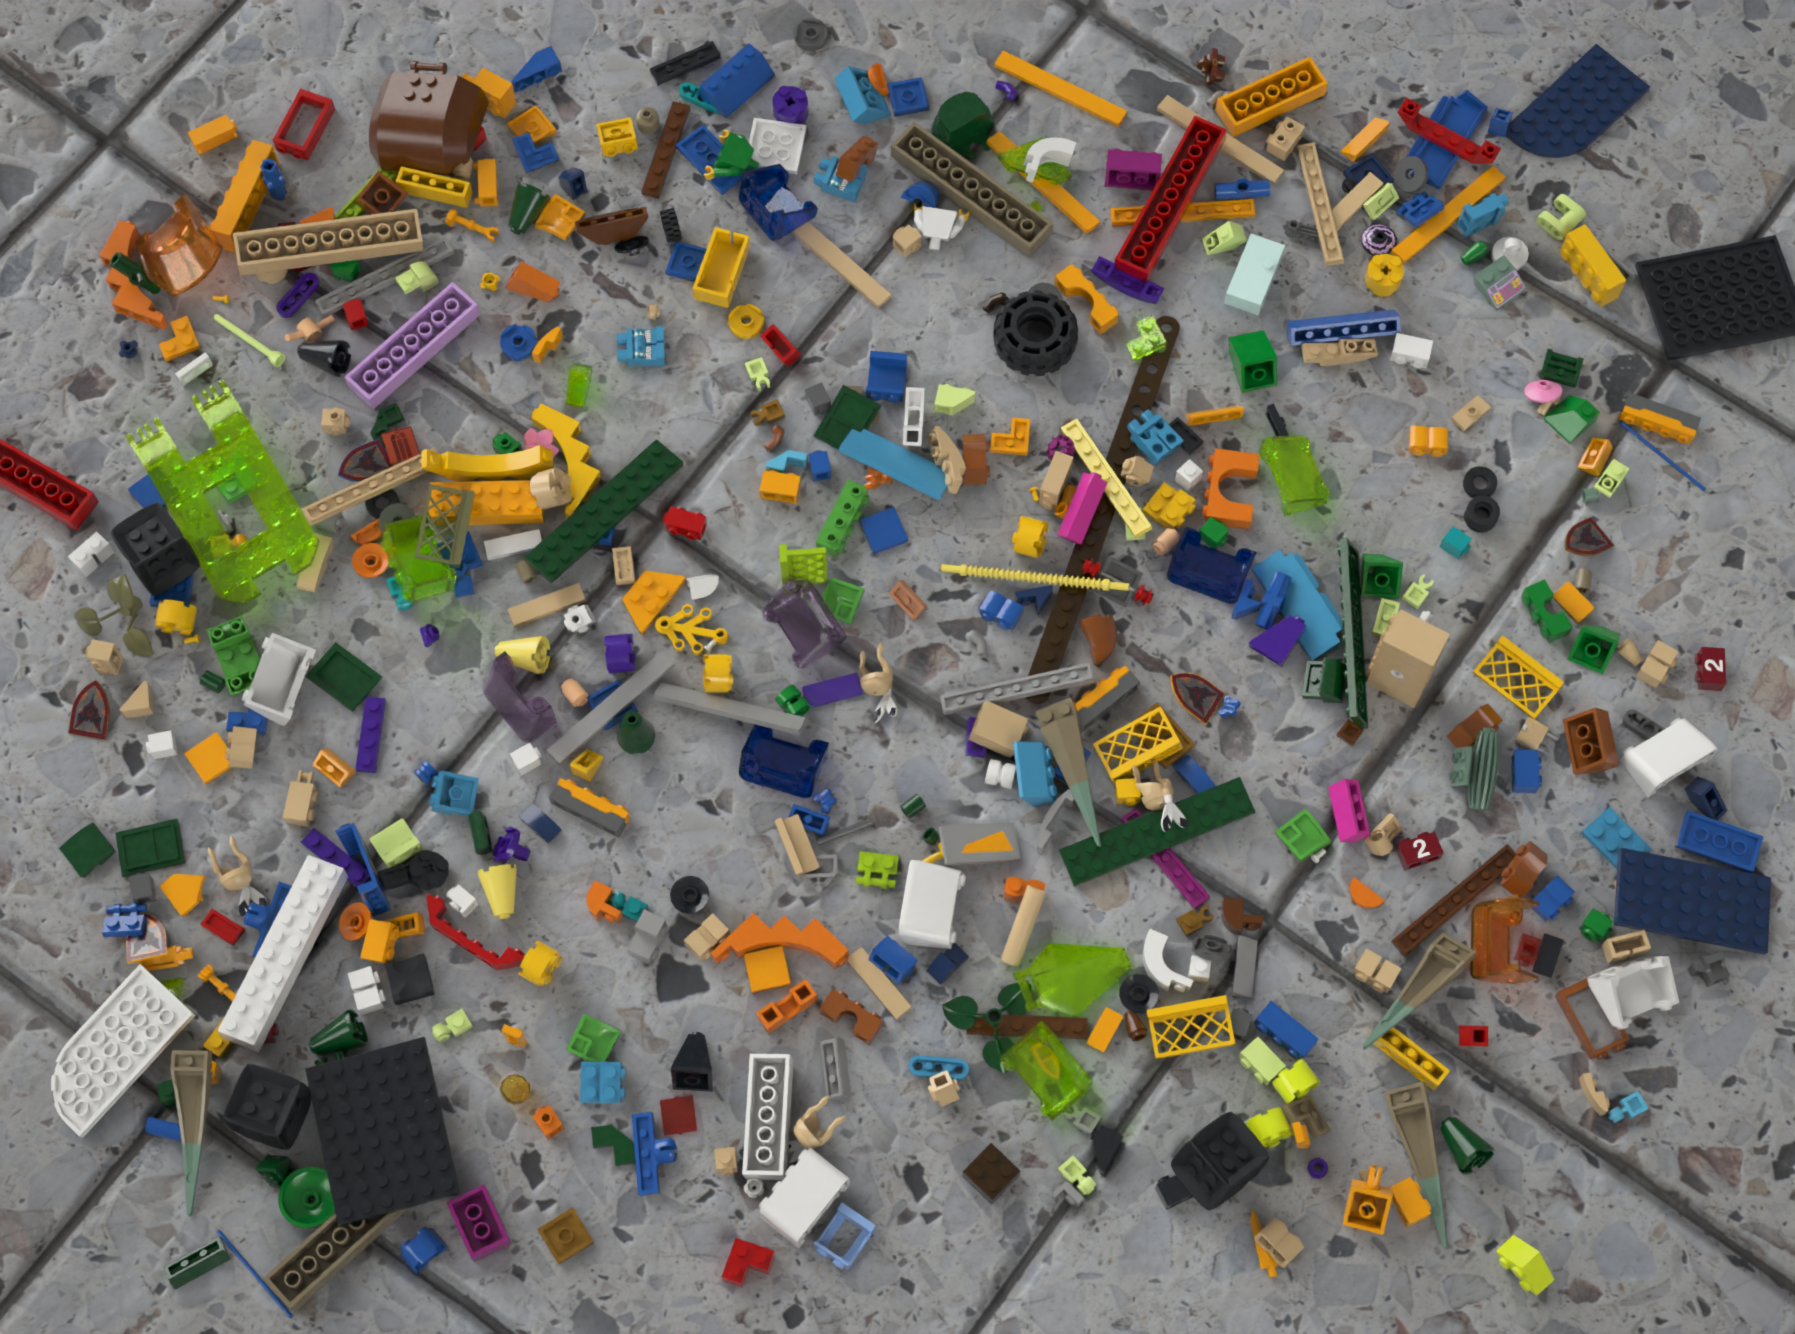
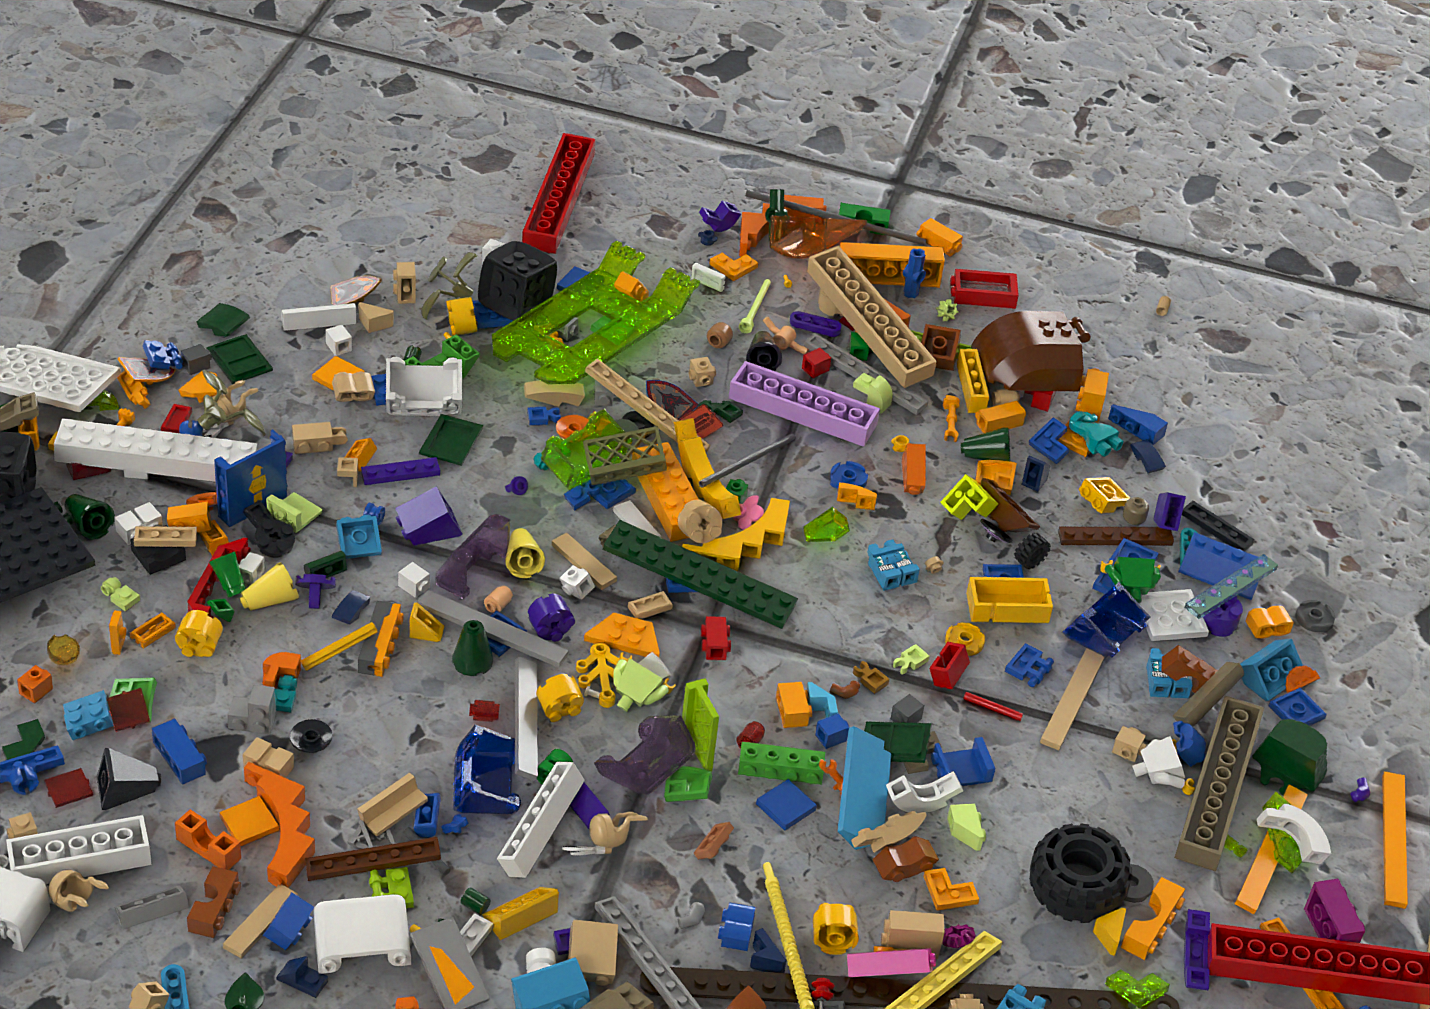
camera: 65 degrees right, 25 degrees down
(107, 324) = (722, 218): none -> dark purple brick
(117, 755) = (318, 316): none -> white brick
(155, 216) = (824, 214): none -> dark grey piece
(163, 181) = (873, 215): none -> green arch
(194, 445) = (631, 286): none -> light orange brick
(250, 887) = (215, 415): none -> olive plant
(285, 387) = (719, 335): none -> medium nougat head
(324, 170) = (947, 310): none -> yellowish green gear
(341, 586) = (541, 415): none -> blue plate
(361, 780) = (348, 468): none -> tan panel
(407, 966) = (165, 536): none -> tan plate
(452, 727) = (427, 518): none -> slope
(470, 920) = (229, 574): none -> green plant
(476, 421) = (745, 461): none -> dark grey piece
(508, 937) = (222, 609): none -> green slope
(516, 1020) = (155, 632): none -> light orange tile
(543, 112) = (1098, 437): none -> teal hips
(578, 79) = (1148, 455): none -> dark blue slope
(593, 246) = (968, 495): none -> neon yellow brick
(593, 844) = (339, 646): none -> yellow axle
(609, 1044) = (128, 709): none -> clear red piece
(662, 94) = (1169, 510): none -> dark purple torso
(671, 1011) = (179, 751): none -> blue brick
(706, 741) = (484, 710): none -> clear red brick
(720, 605) = (638, 684): none -> yellowish green torso
(775, 85) = (1231, 586): none -> tile
(790, 284) = (1023, 664): none -> blue plate
(805, 533) = (751, 733): none -> clear red brick
(809, 73) = (1269, 621): none -> light orange brick
(828, 329) = (993, 706): none -> red bar
(845, 876) = (372, 859): none -> reddish brown plate
(850, 728) = (540, 819): none -> white brick
(886, 157) = (1209, 693): none -> dark tan brick
(932, 772) = (523, 911): none -> yellow slope
(944, 814) = (475, 932): none -> white plate
(1089, 334) = (1109, 929): none -> yellow slope

